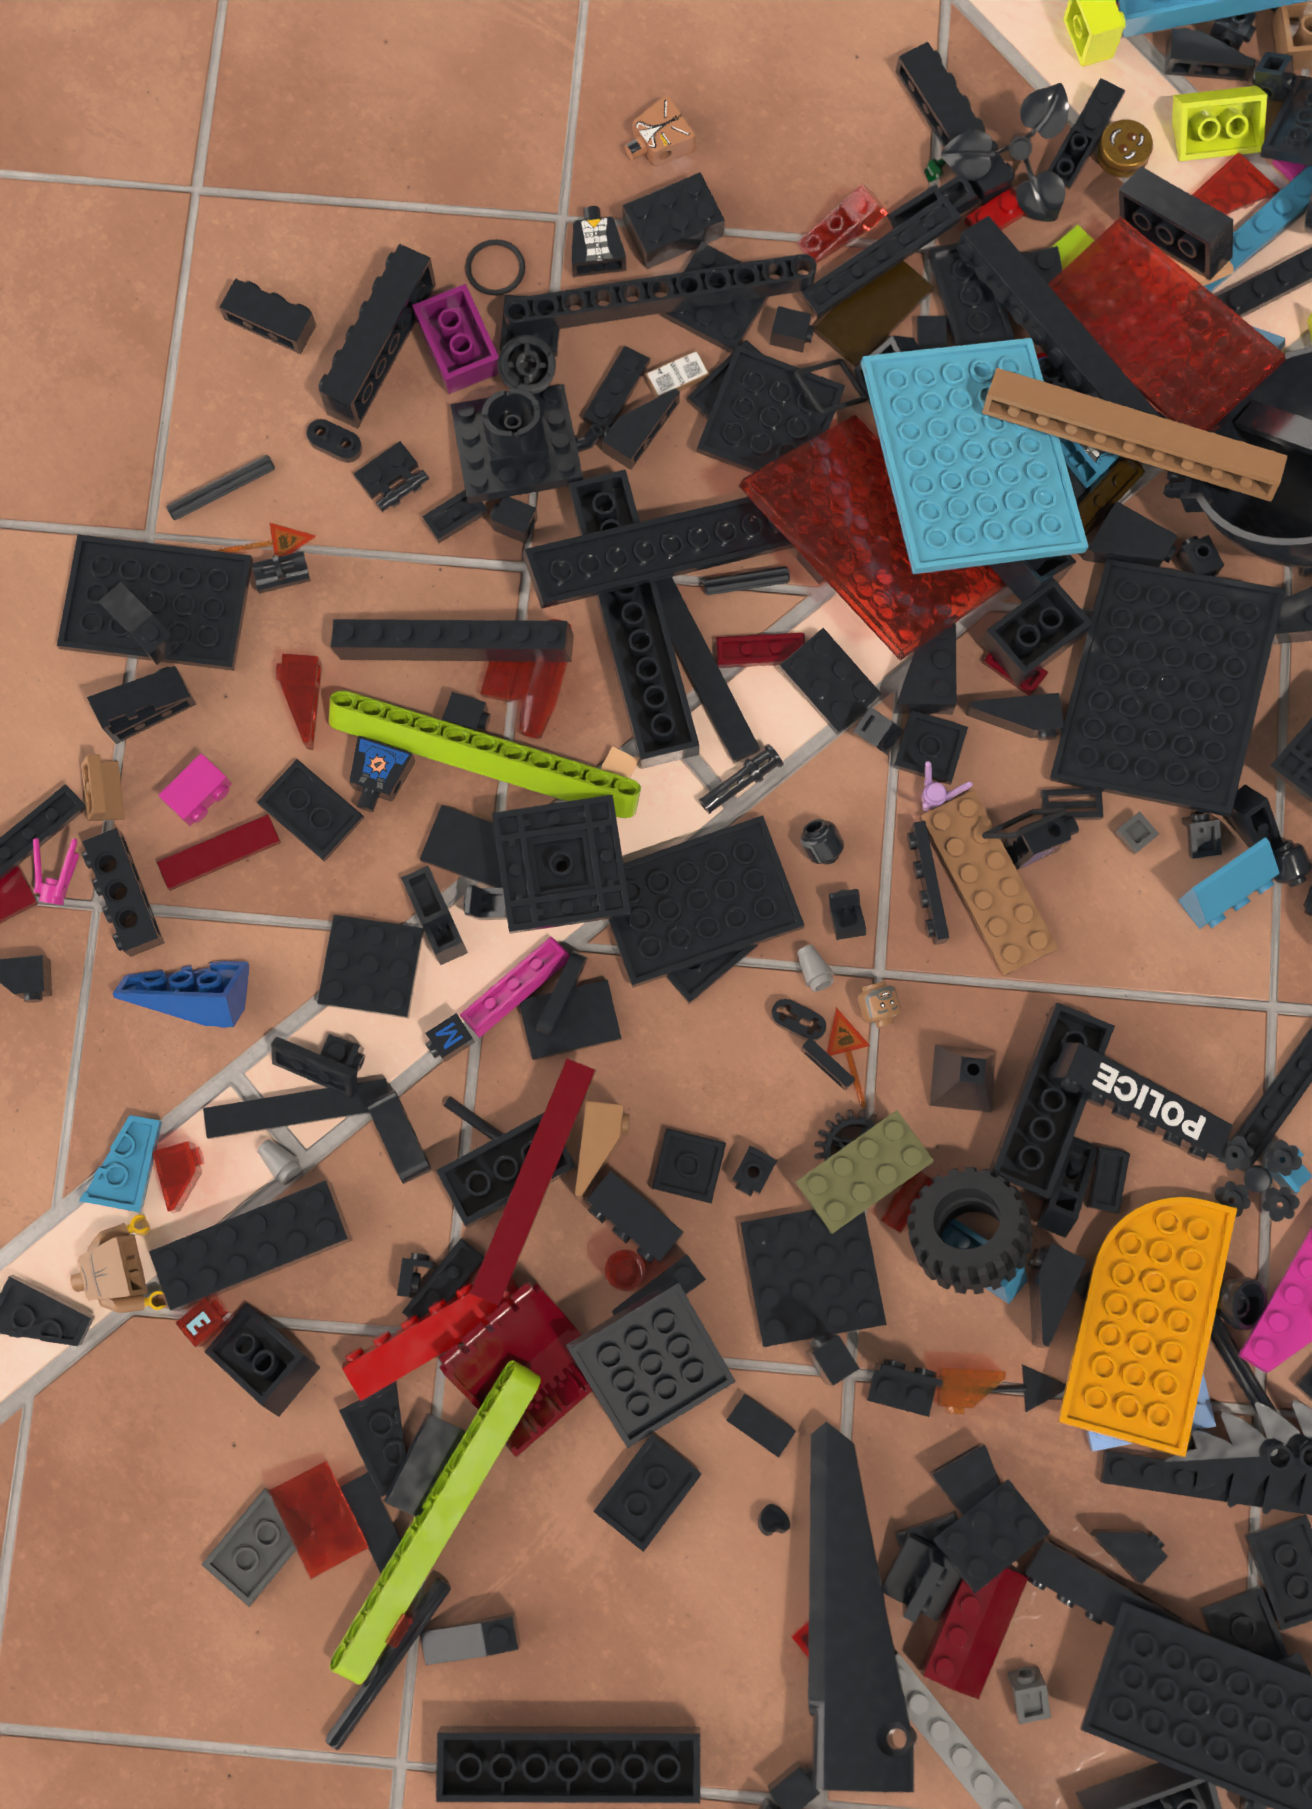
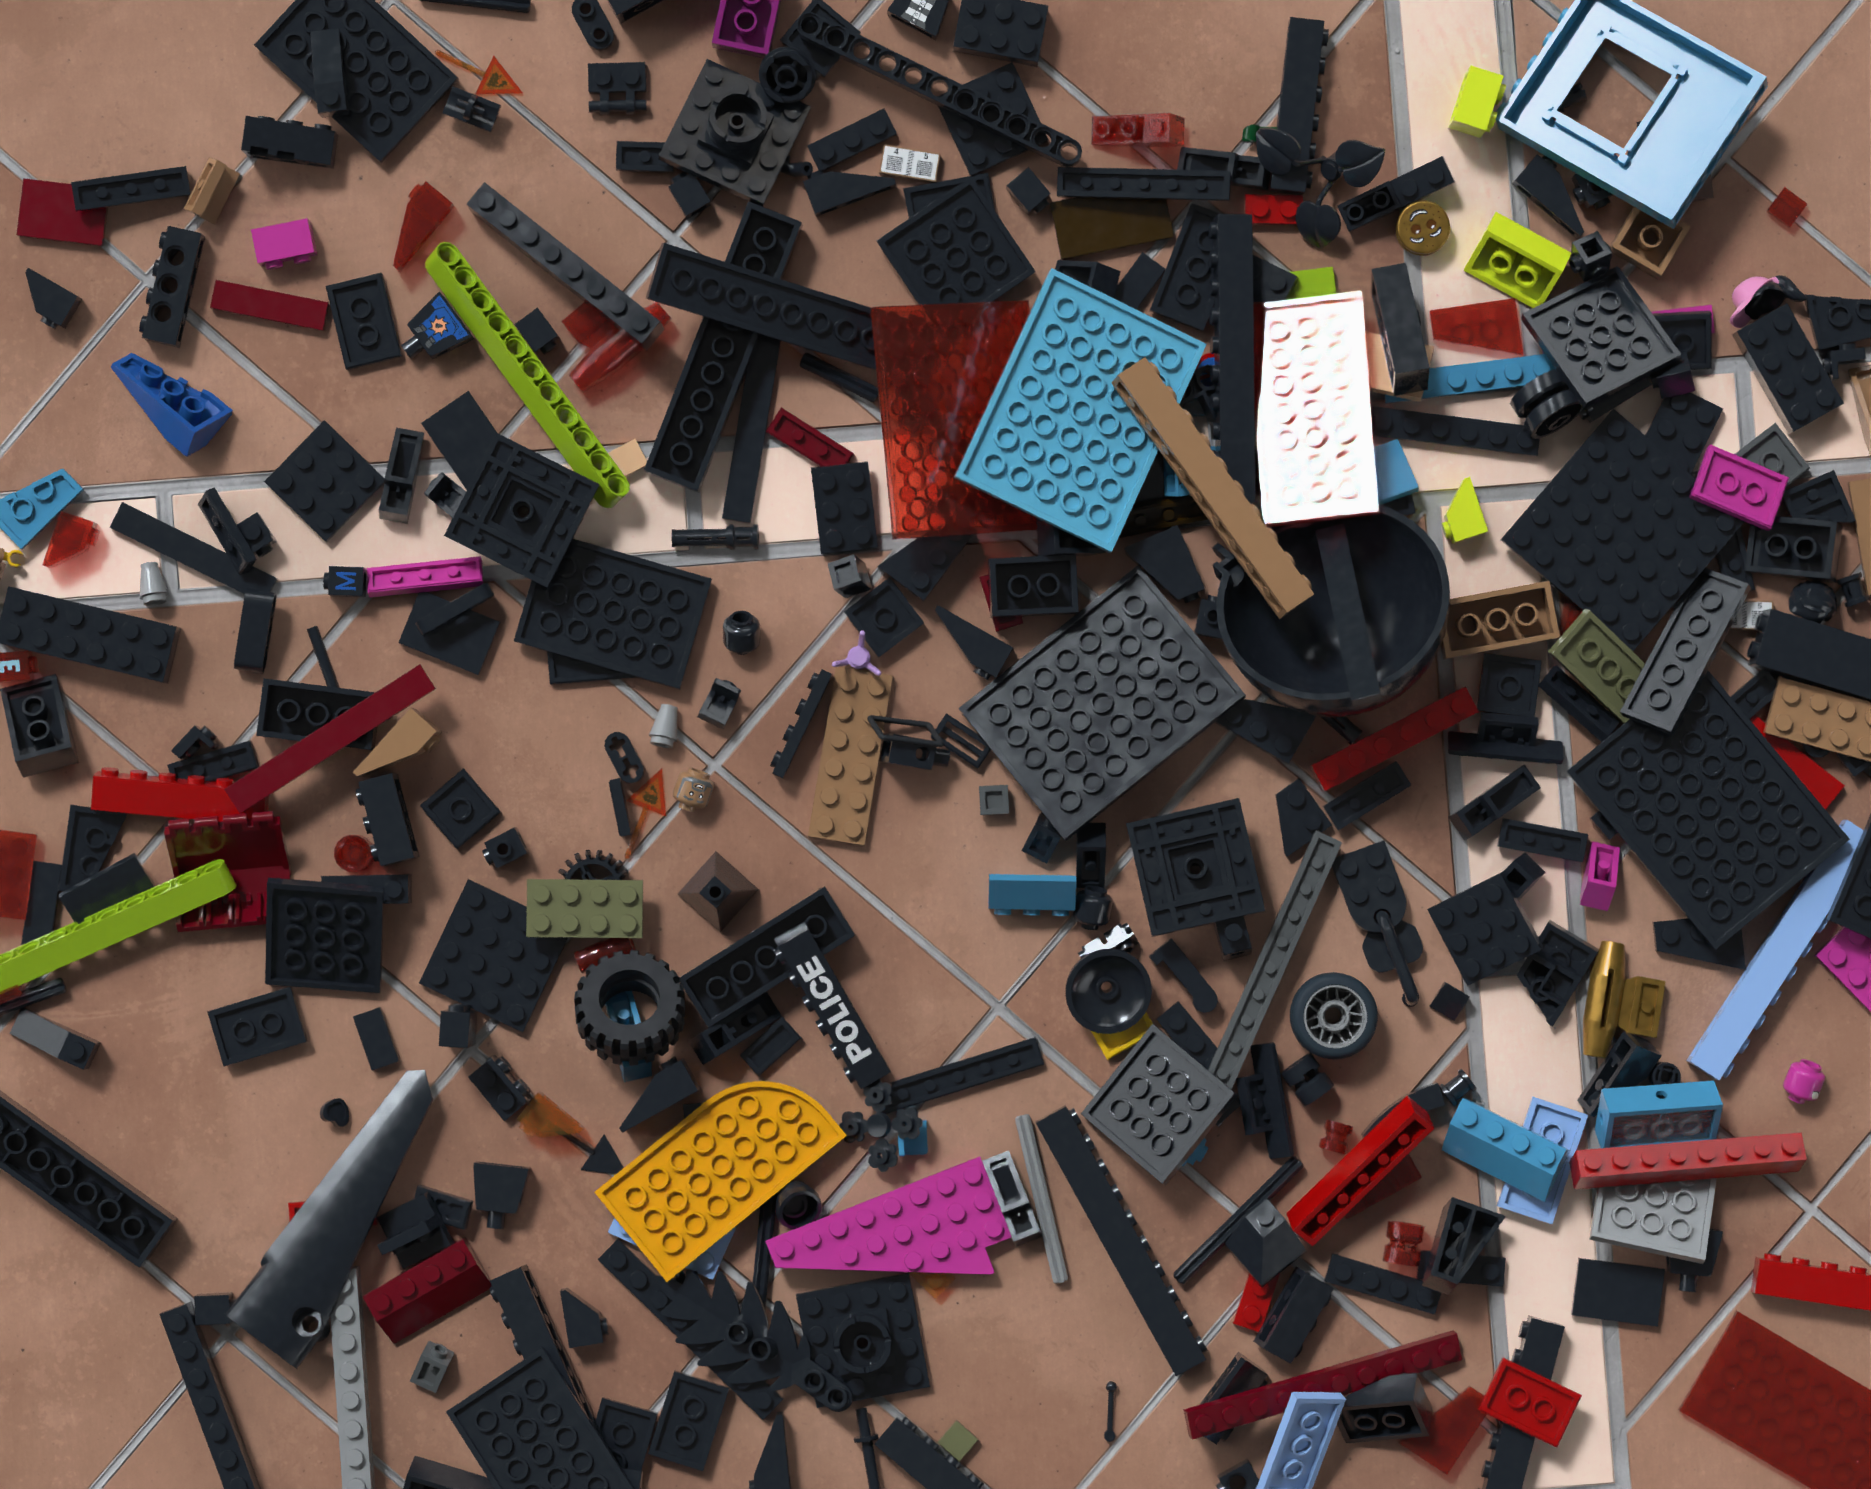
camera: 40 degrees right, 10 degrees up
(54, 890) = (121, 246): dark pink plant -> none
(798, 374) = (1021, 240): black piece -> none
(991, 1536) = (482, 1235): black plate -> none

